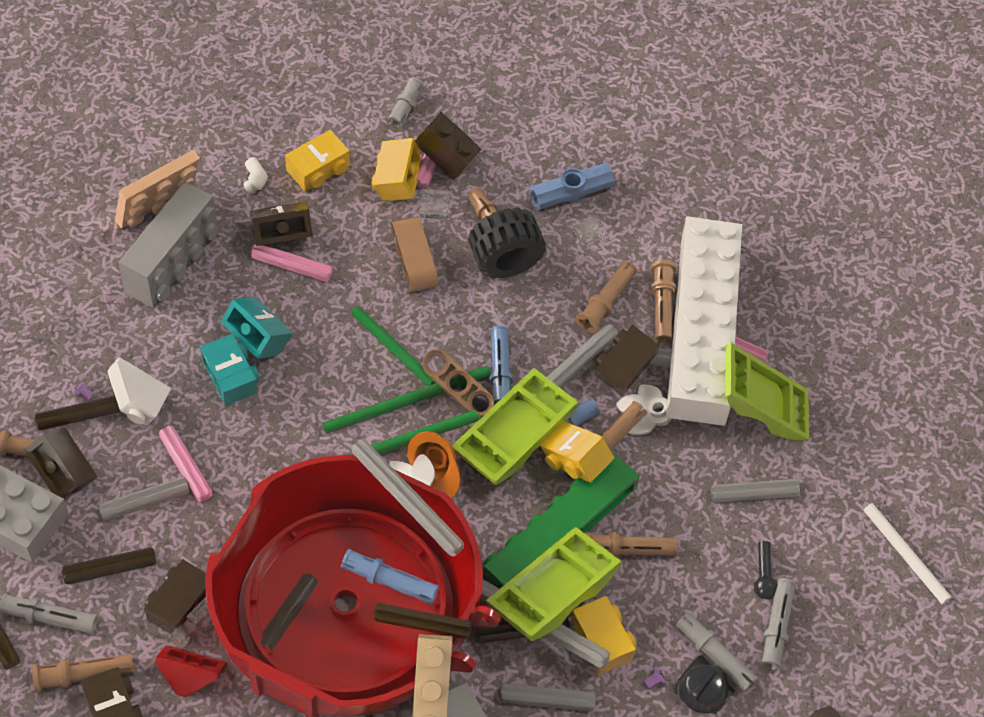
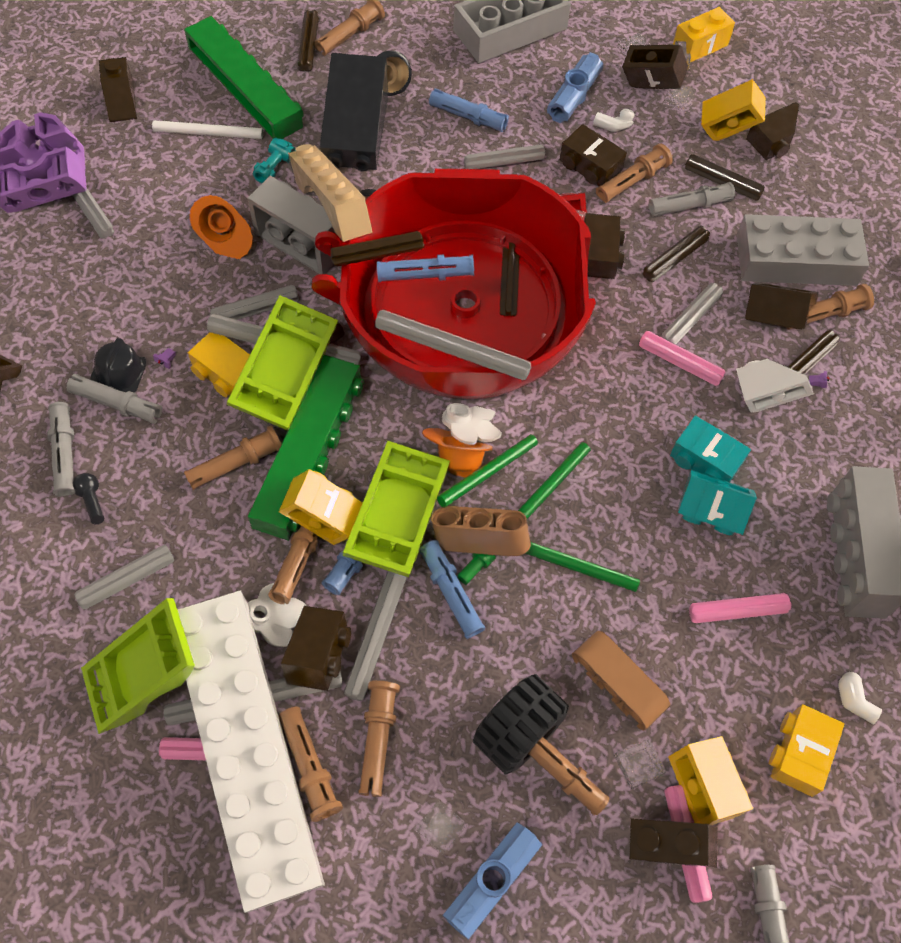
camera: 155 degrees right, 5 degrees up
(281, 223) = (782, 635): dark brown brick -> none

